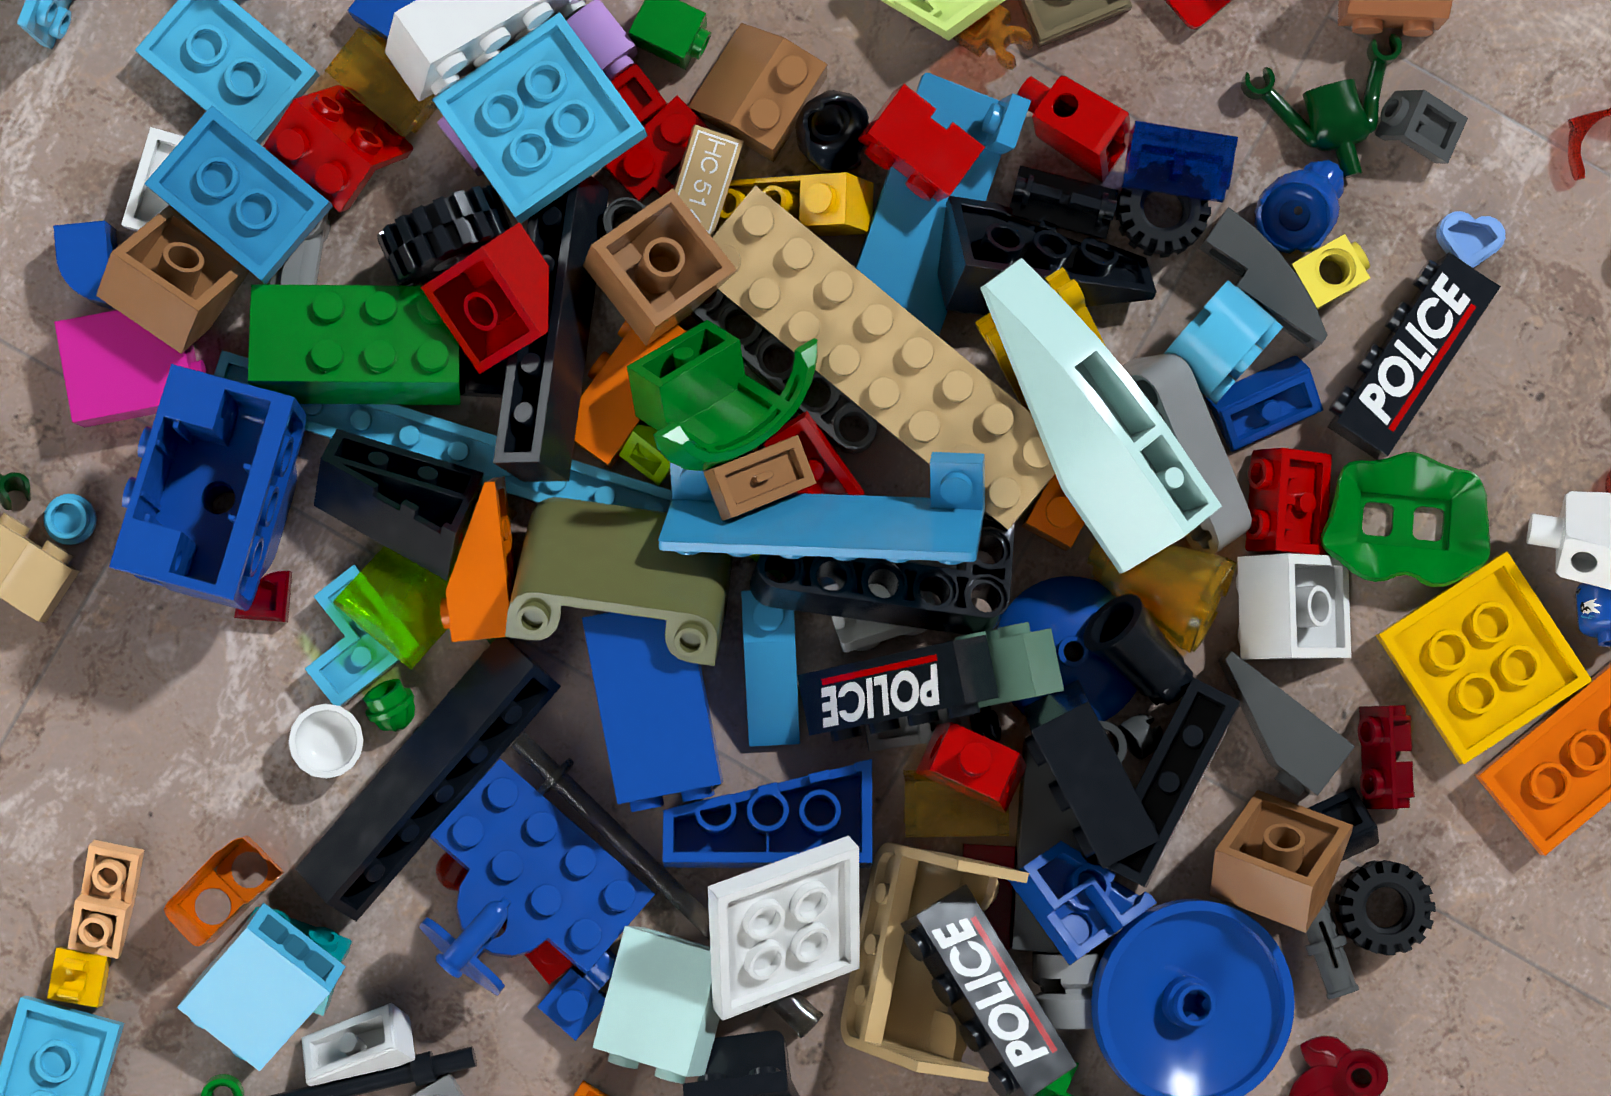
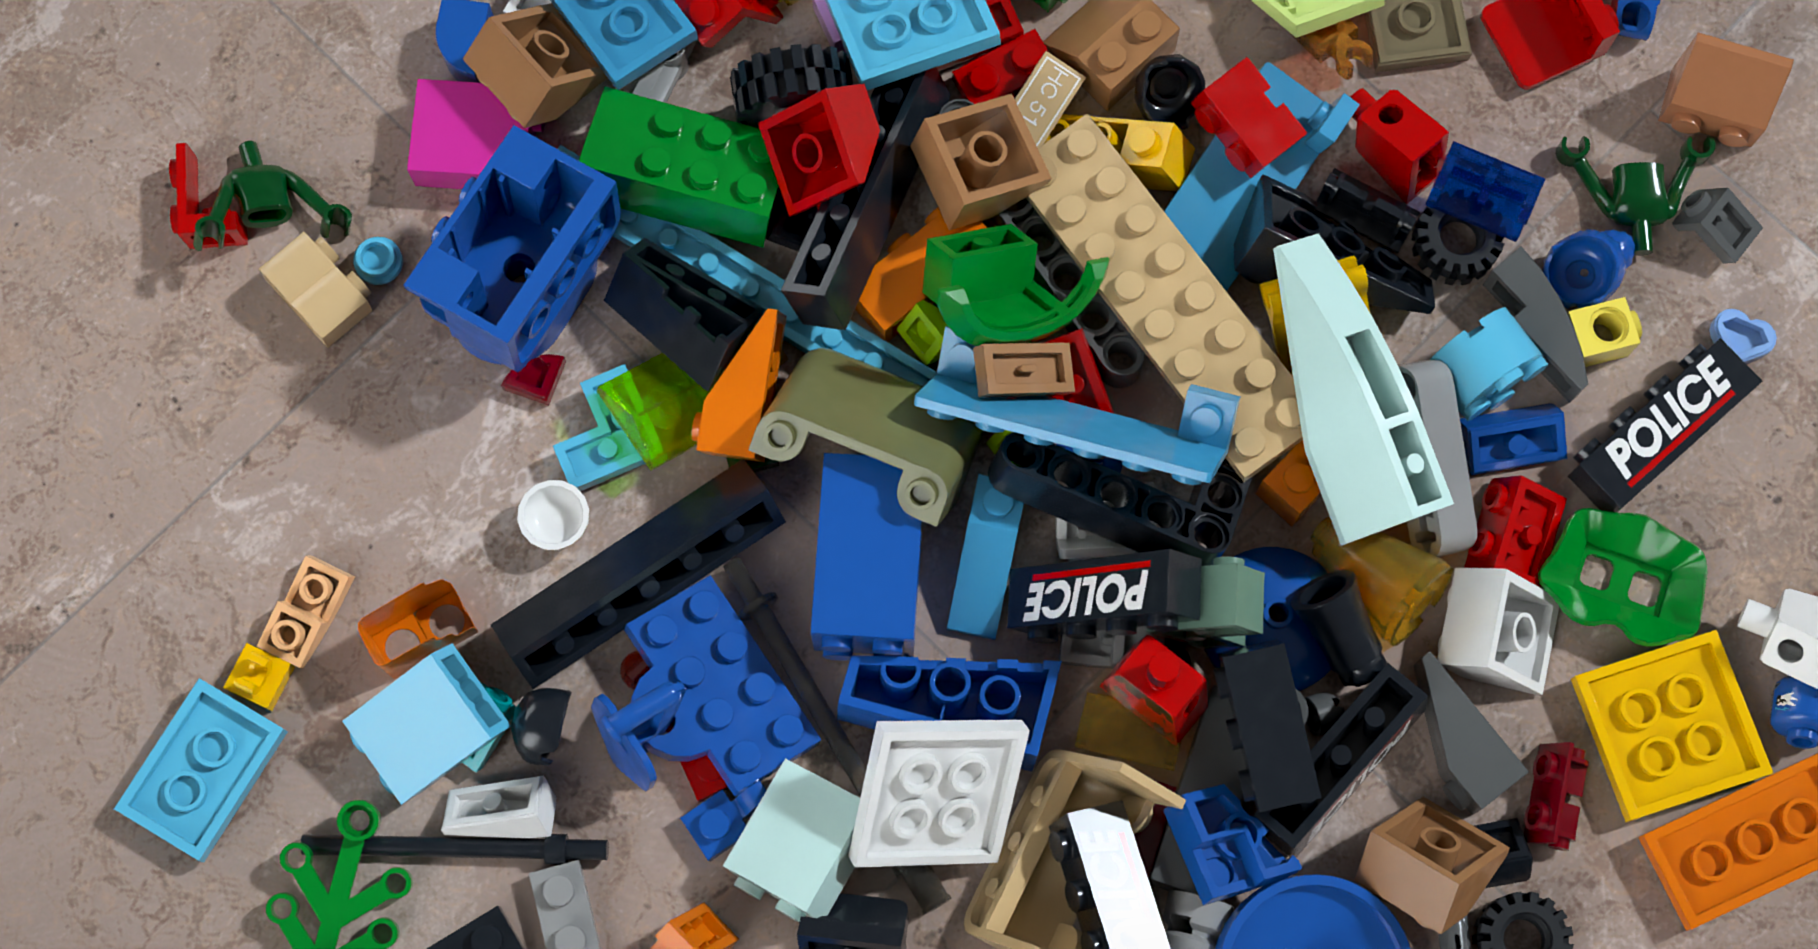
camera: 20 degrees right, 10 degrees down
(372, 954) = (539, 724): none -> black hair
(390, 705) = (622, 502): green plate -> none

